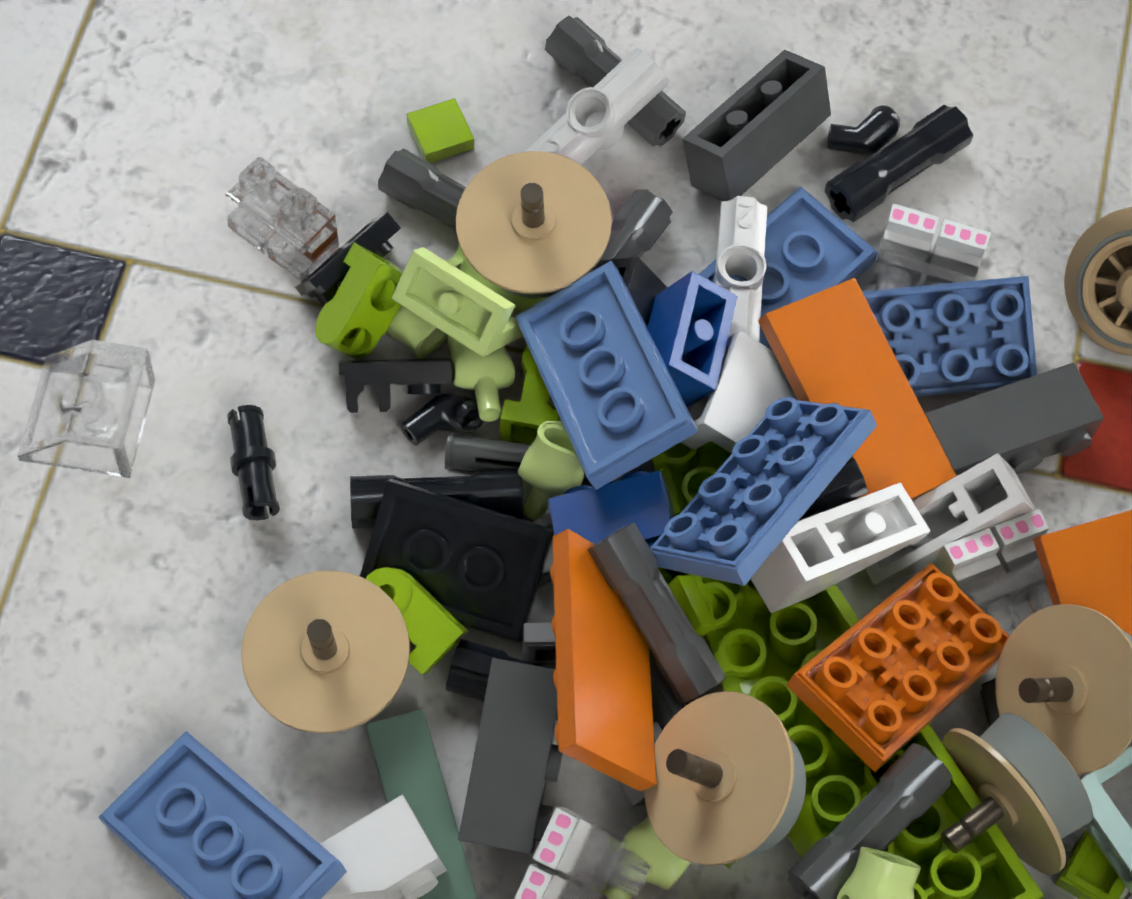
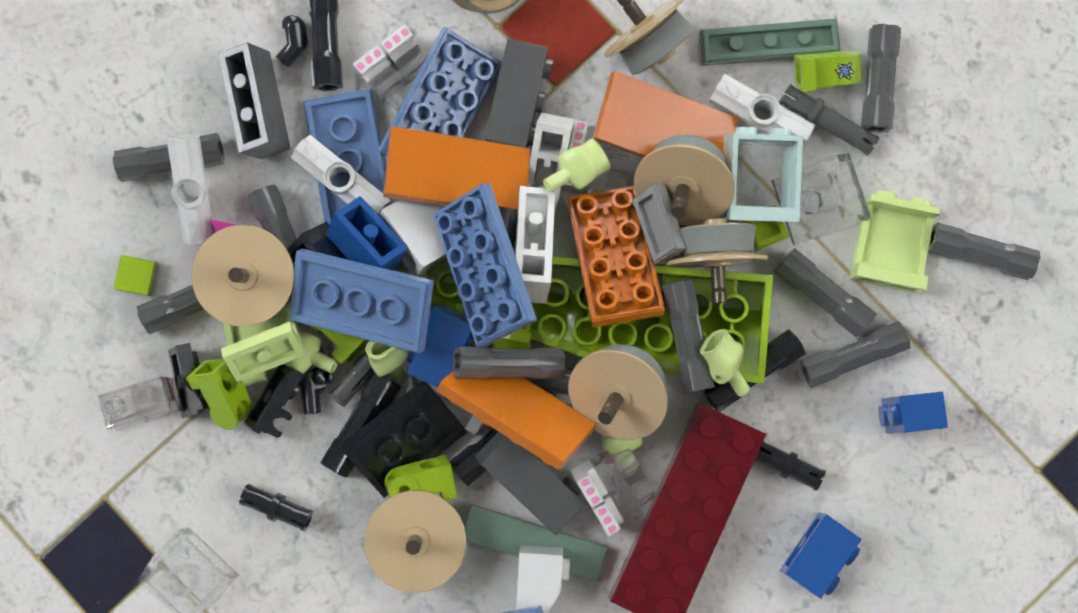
camera: 50 degrees left, 20 degrees up
(984, 543) = (579, 166): none -> yellowish green piece
(991, 687) = (658, 224): none -> light grey tile

